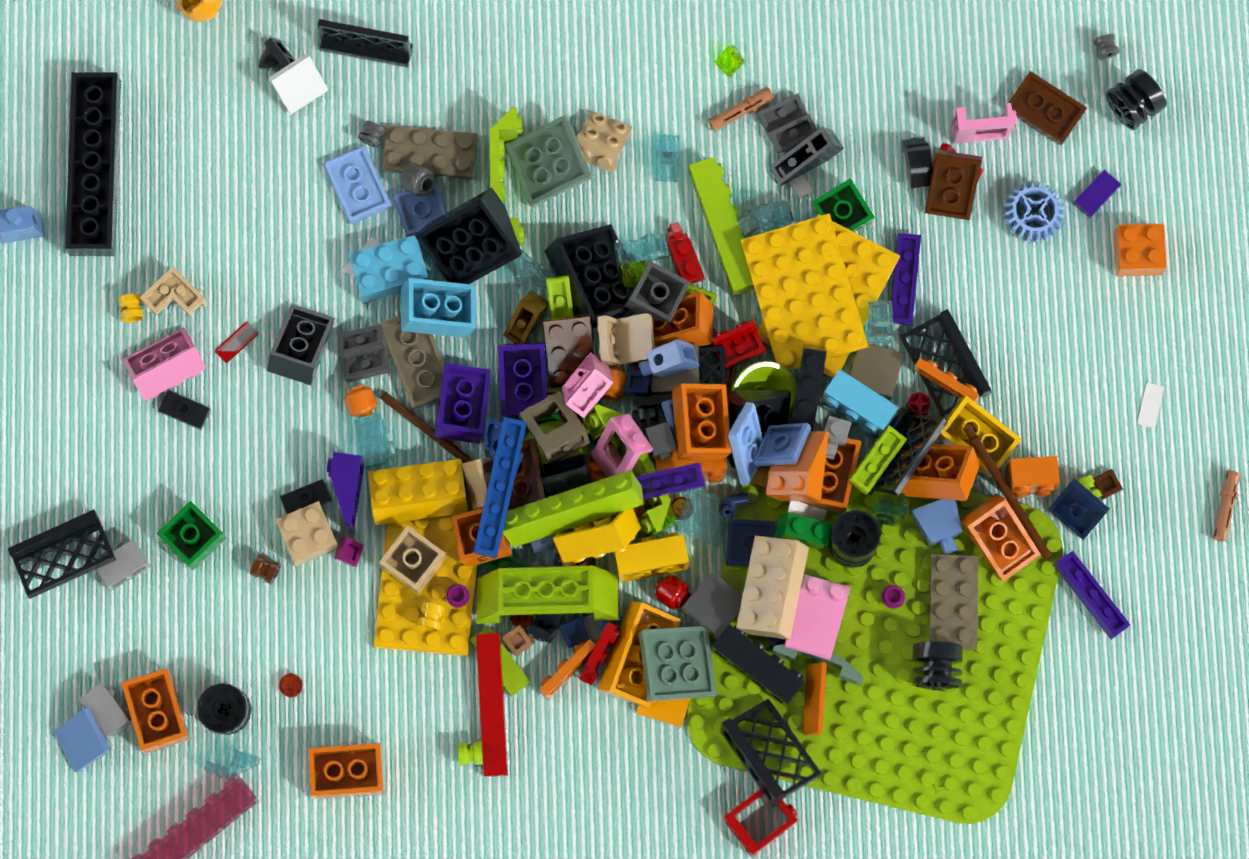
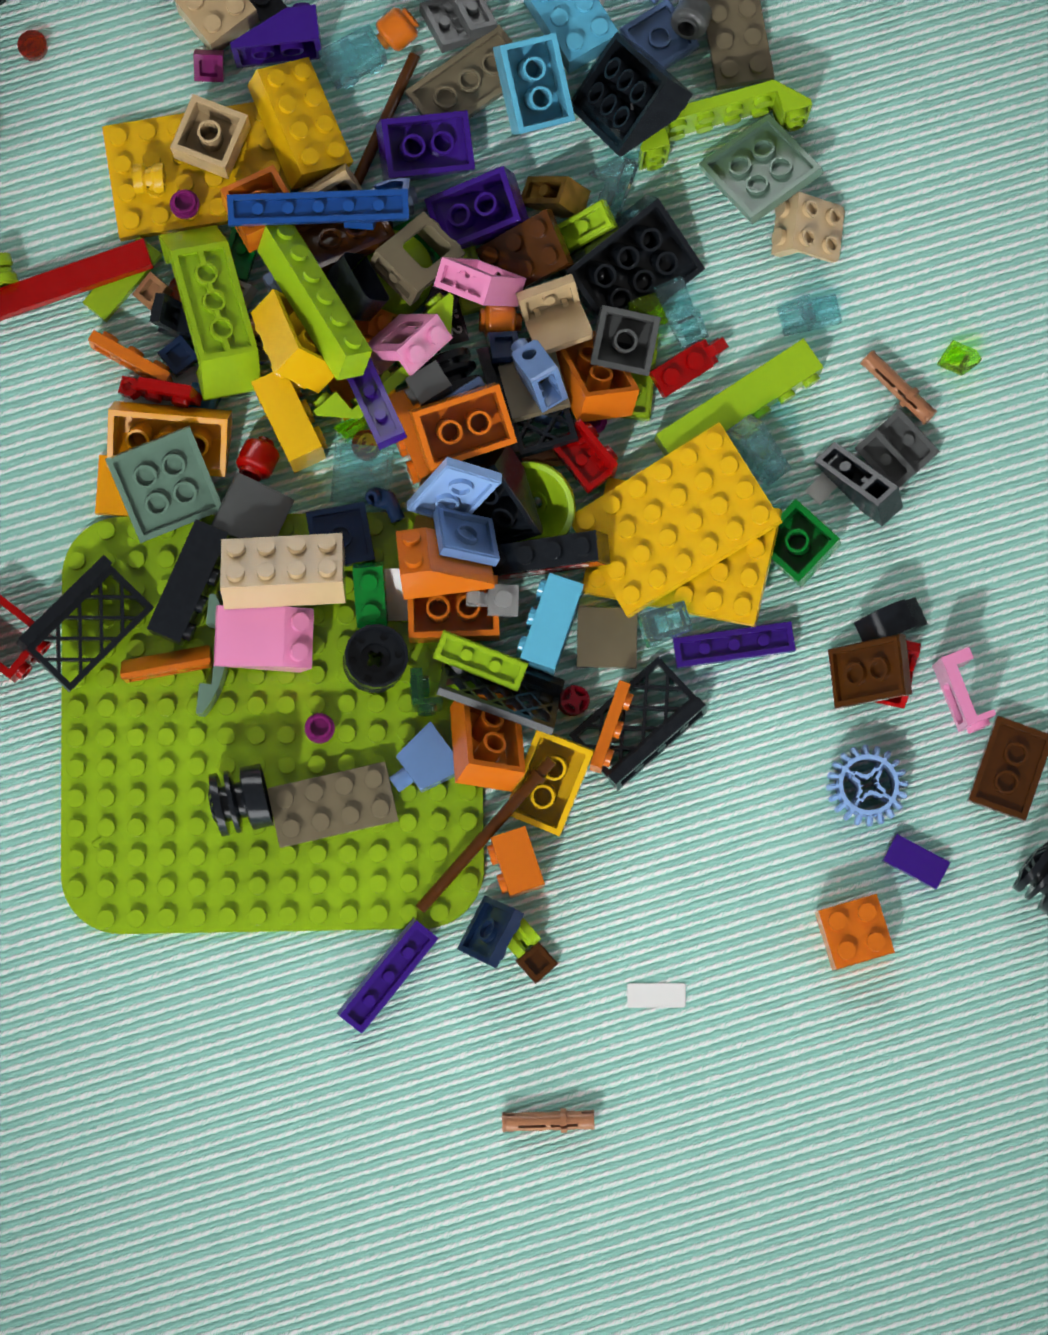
camera: 75 degrees right, 5 degrees up
(999, 536) = (428, 840): orange slope -> none

